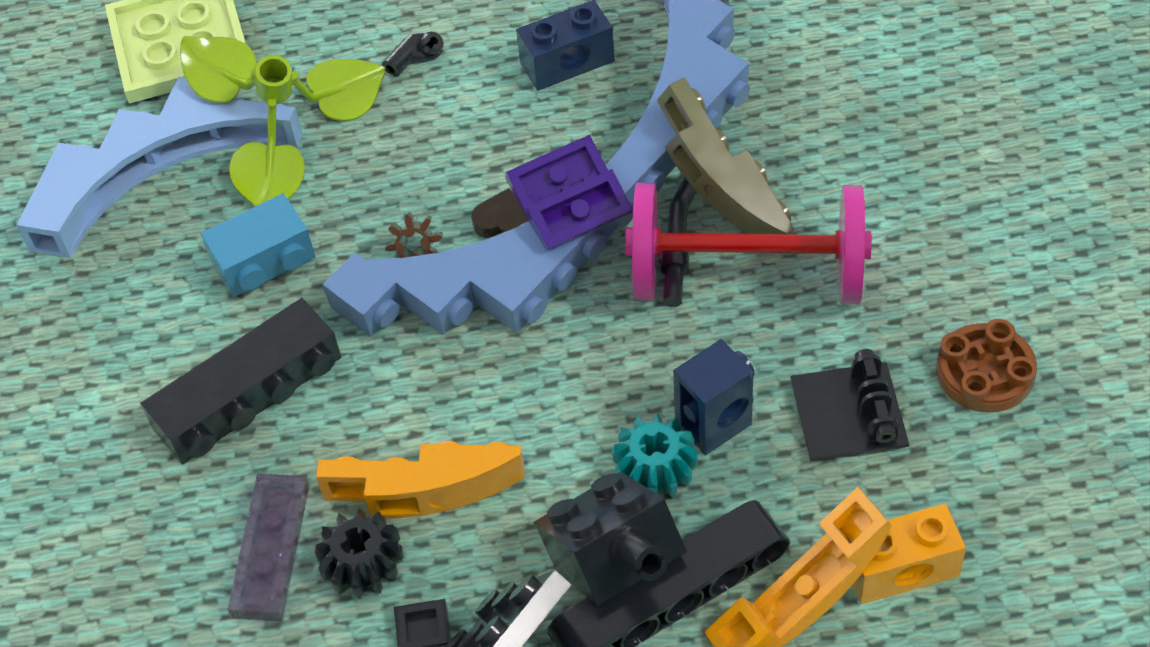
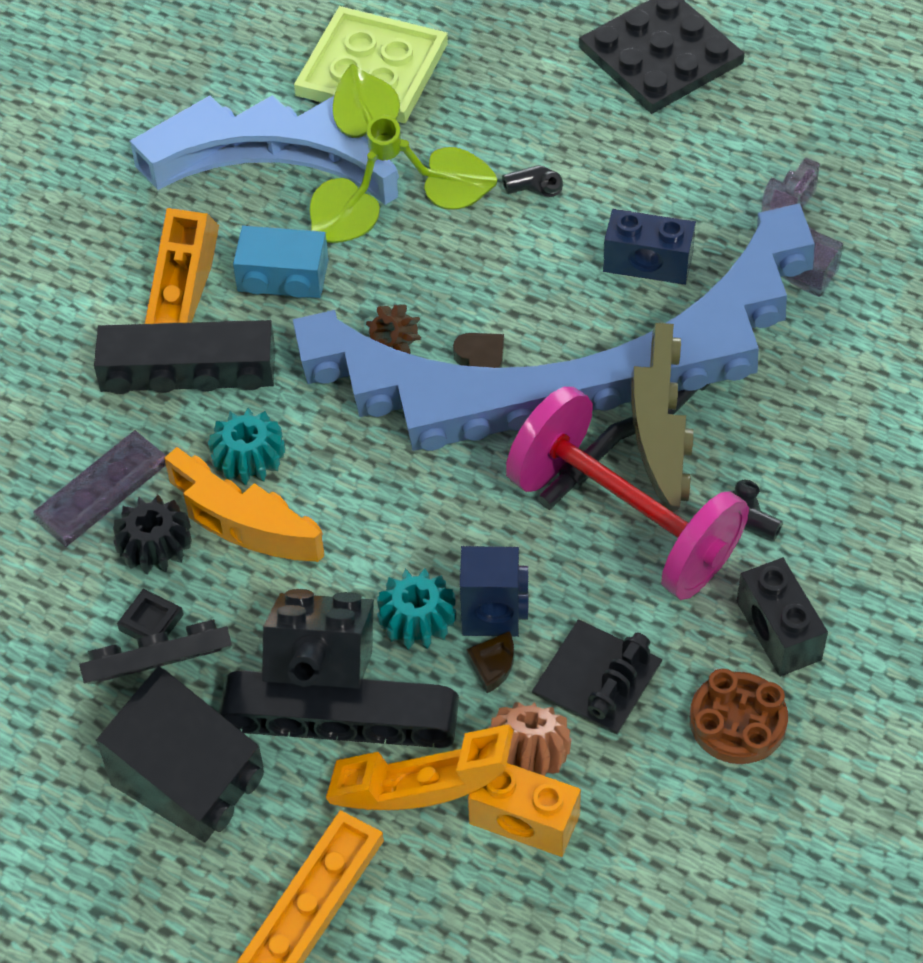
camera: 35 degrees right, 0 degrees up
(167, 308) = (181, 266): none -> light orange slope
(374, 420) = (246, 446): none -> teal gear
(568, 192) = (521, 361): dark purple slope -> none
(752, 457) = (492, 660): none -> dark brown tile
(828, 198) = (758, 521): none -> black arm
(843, 479) = (538, 739): none -> nougat gear
(950, 264) = (781, 616): none -> black brick

